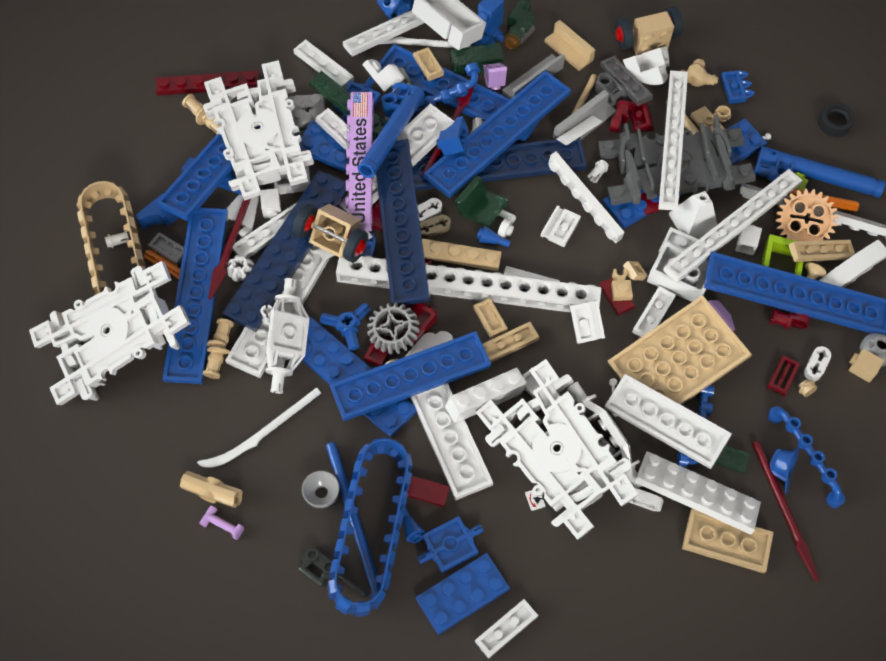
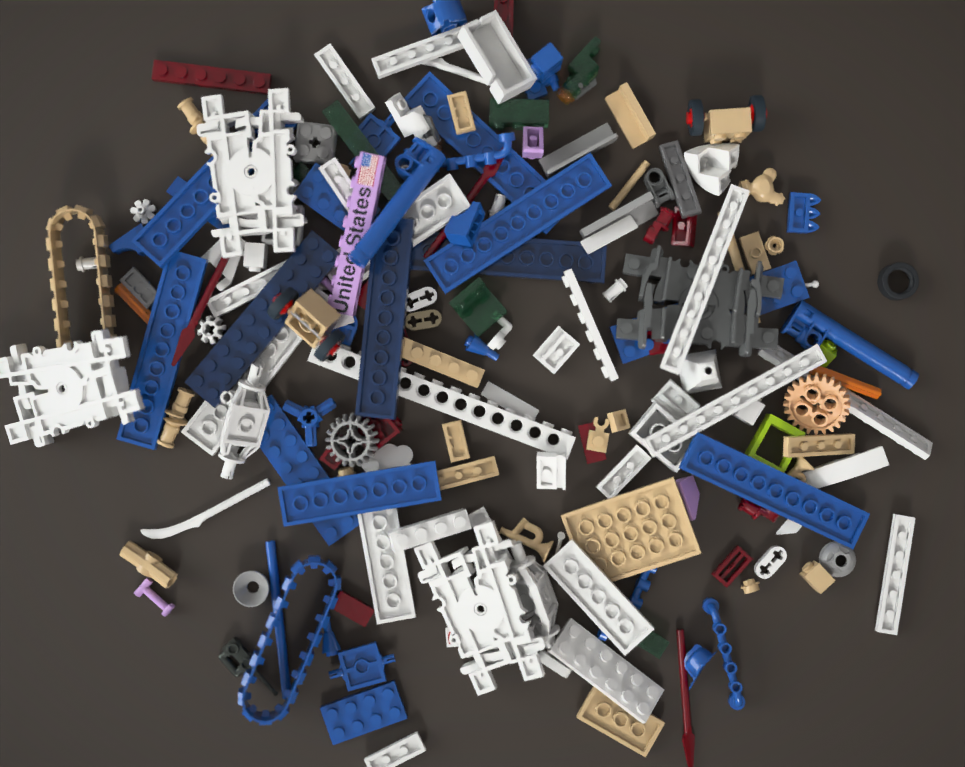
camera: 10 degrees right, 25 degrees up
(159, 188) = (143, 211): none -> white plant
(601, 393) = (542, 548): none -> tan piece
(824, 330) = (789, 527): none -> white sticker

